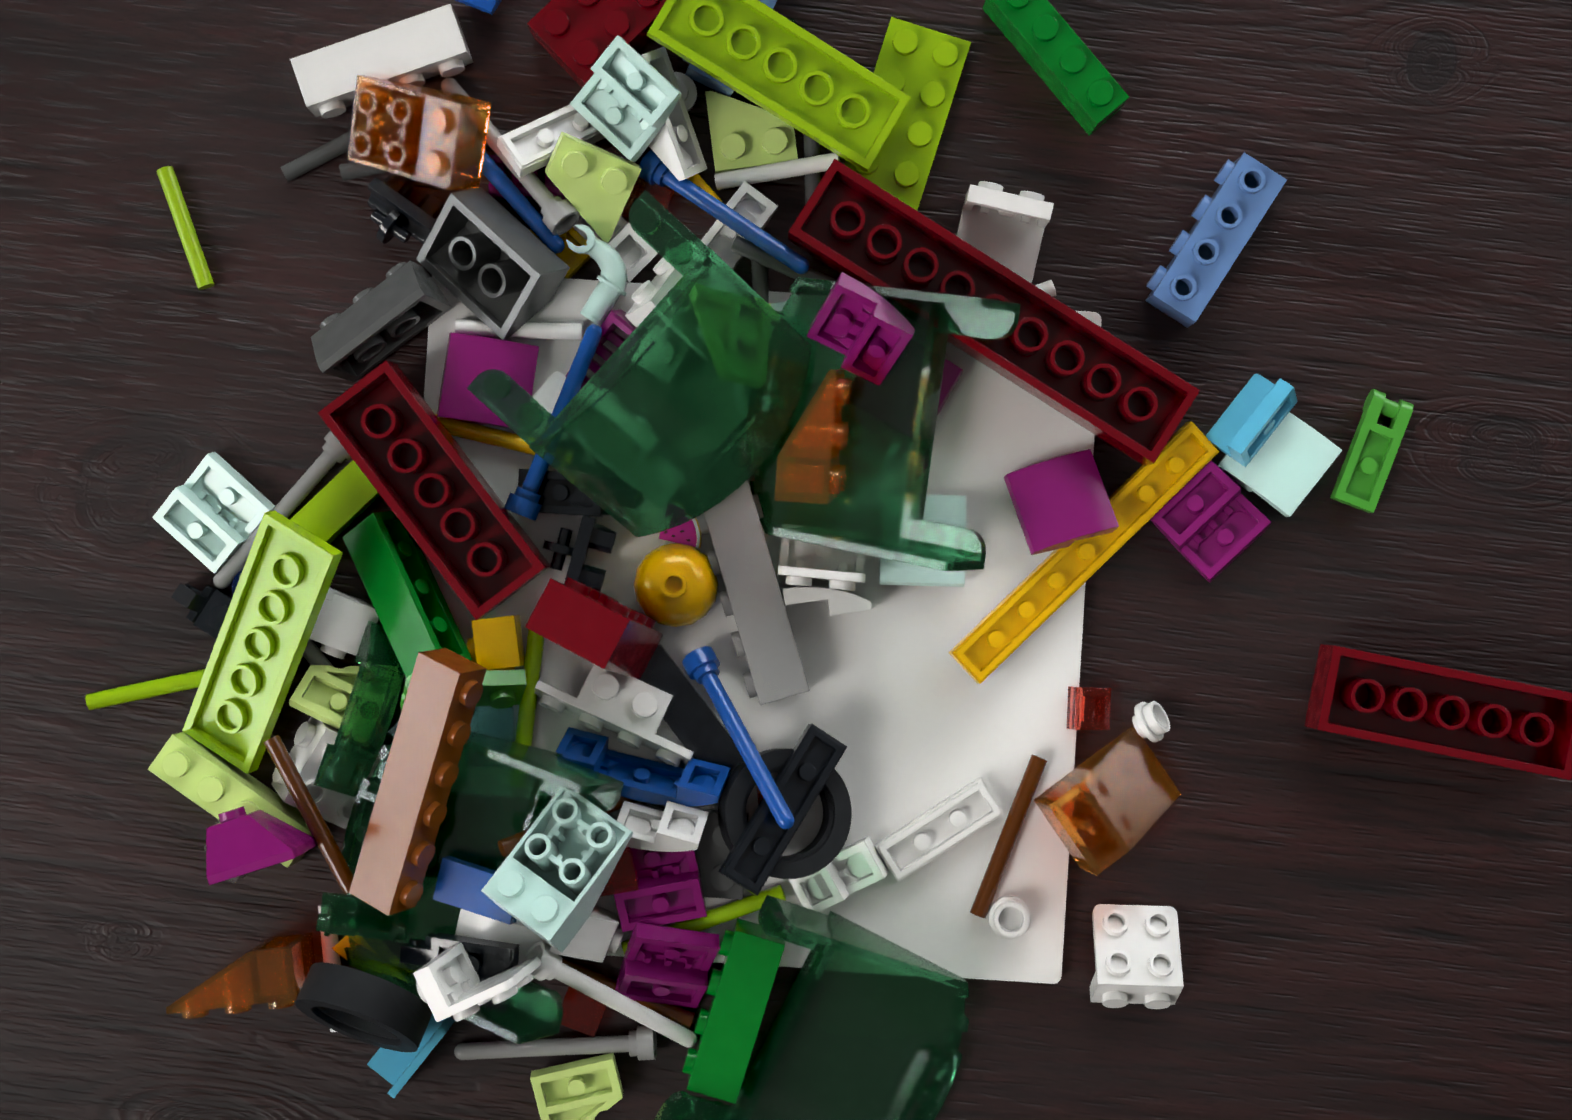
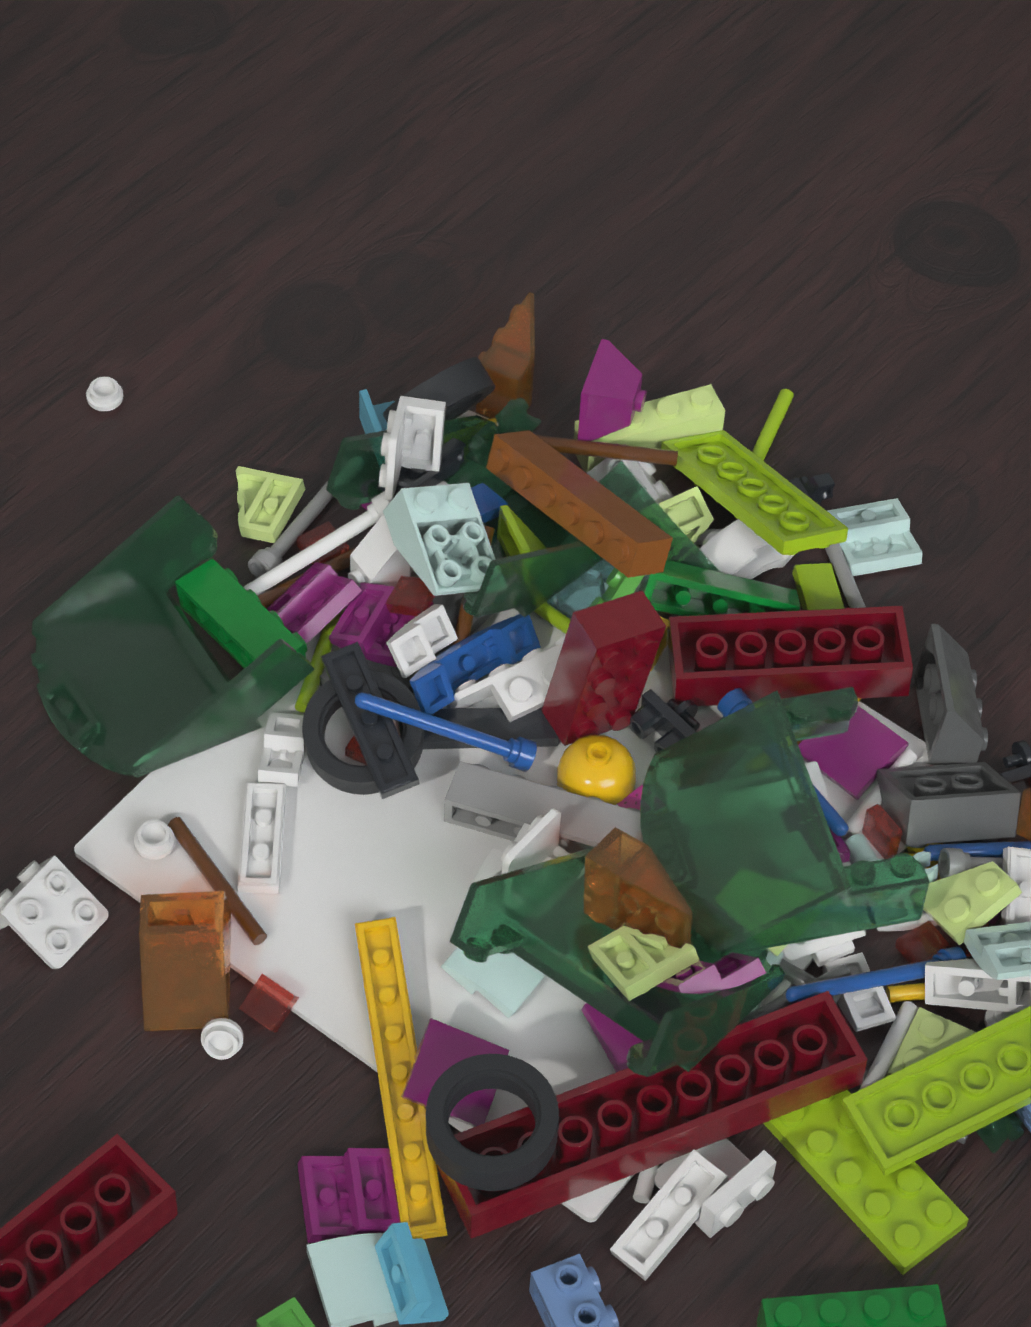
camera: 120 degrees right, 35 degrees down
(487, 806) = (515, 535): none -> lime slope
(565, 298) = (882, 831): none -> clear red tile
(880, 402) = (639, 960): none -> yellowish green wing
(1060, 250) = (668, 1215): none -> white plate
(1171, 420) = (501, 1073): none -> black tyre

